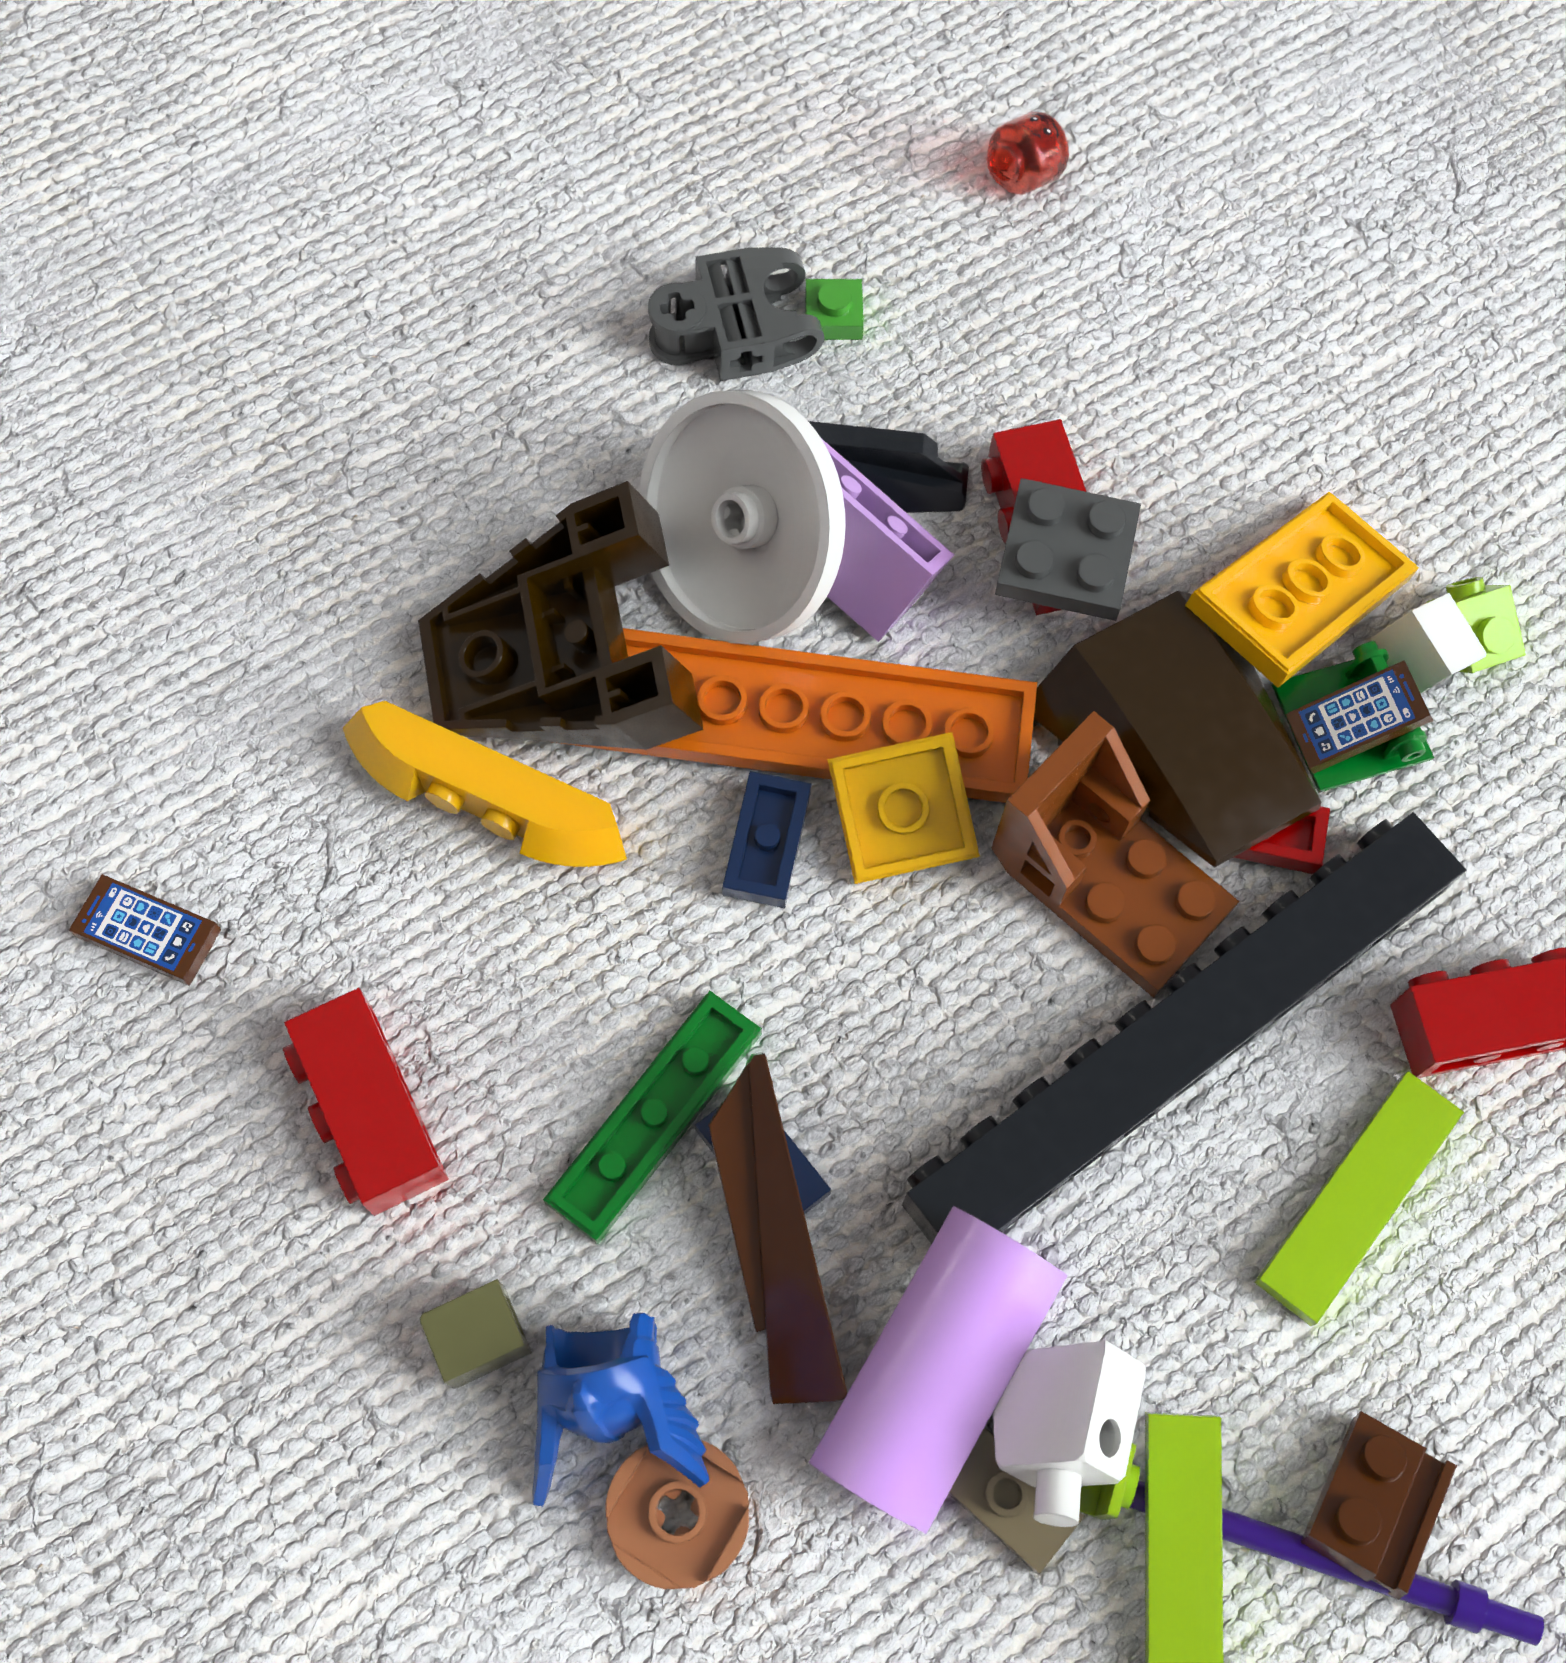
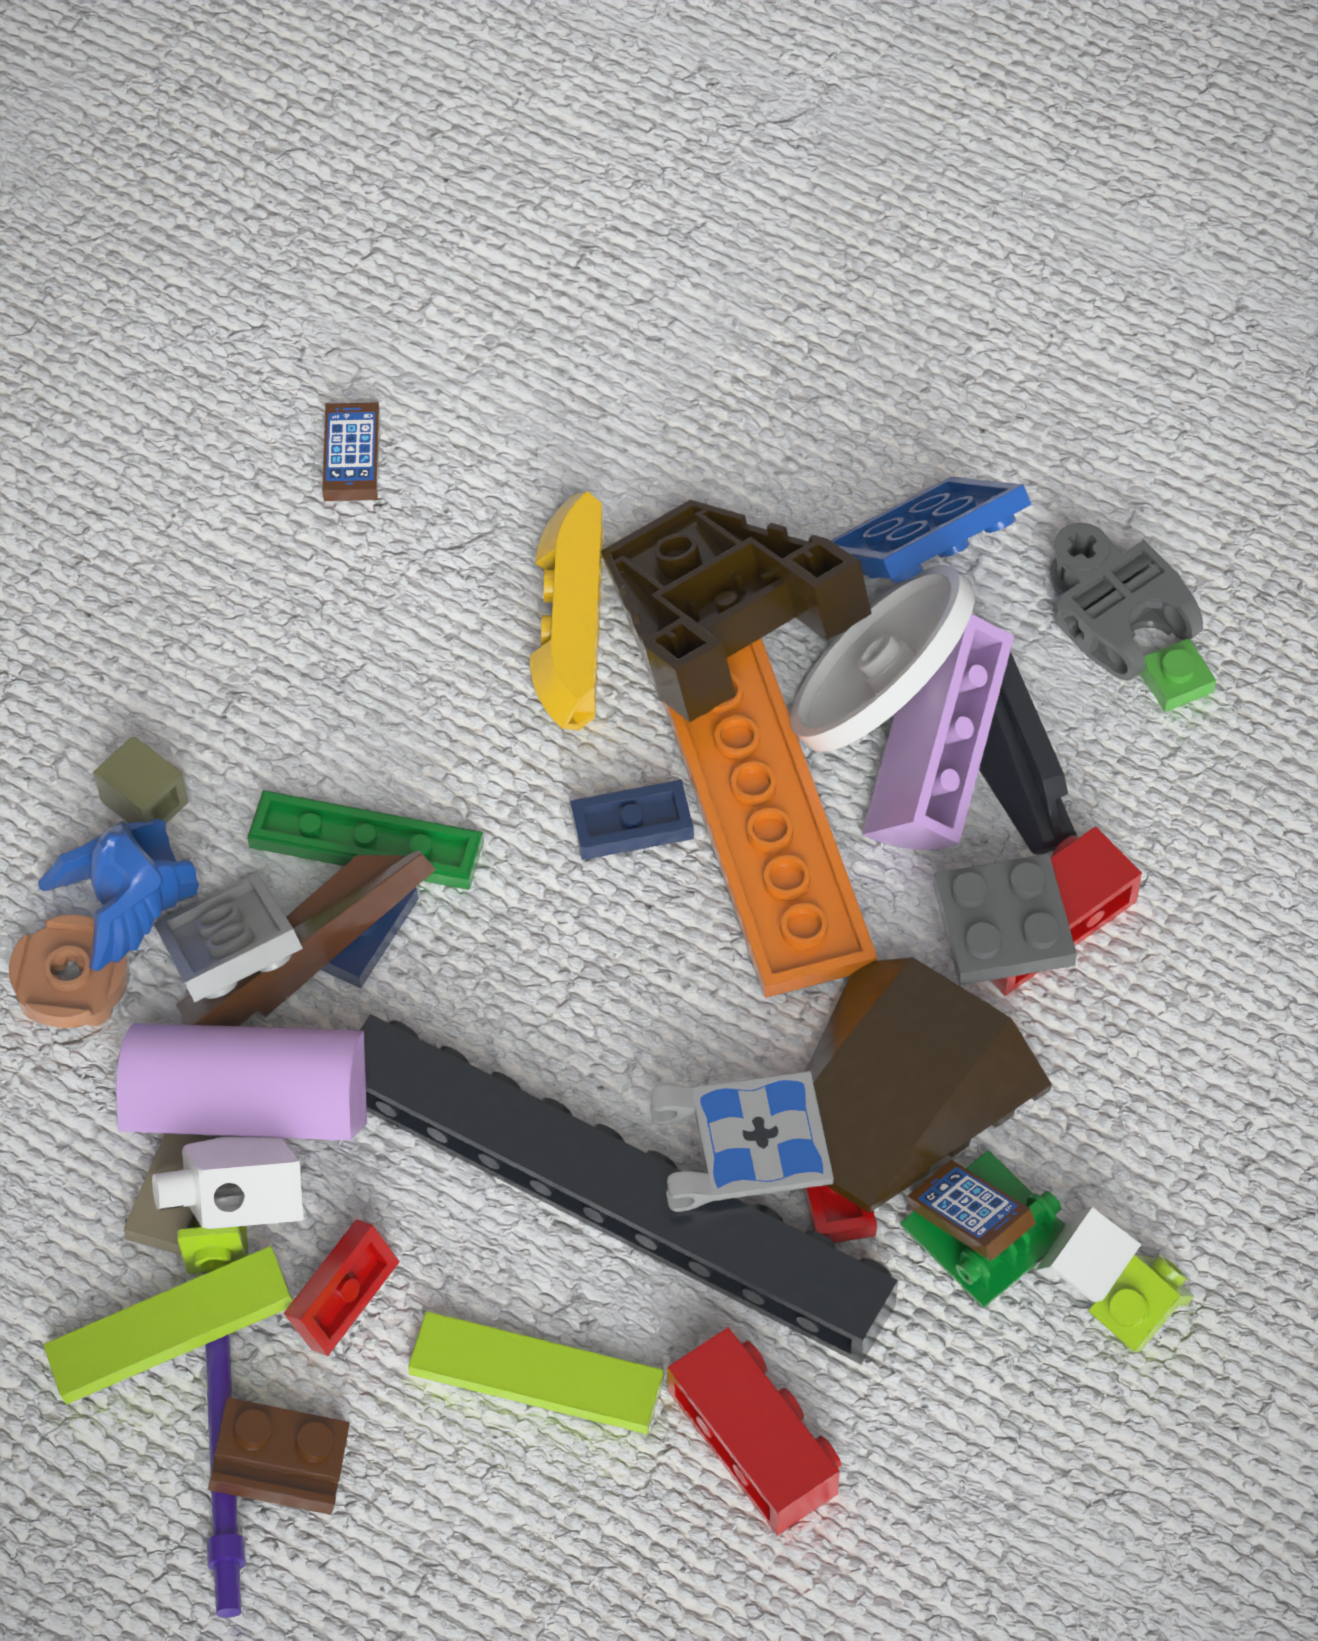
camera: 70 degrees right, 10 degrees down
(362, 1103) = (282, 642): red brick -> none
(589, 417) = (932, 525): none -> blue plate
(750, 1310) = (228, 937): none -> light grey plate
(903, 808) = (705, 900): yellow tile -> none
(1090, 859) = (744, 1019): dark orange bracket -> none
(1220, 1381) = (341, 1287): none -> red plate
(1222, 870) = (752, 1138): none -> light grey flag
(1301, 588) = (1087, 1129): yellow tile -> none

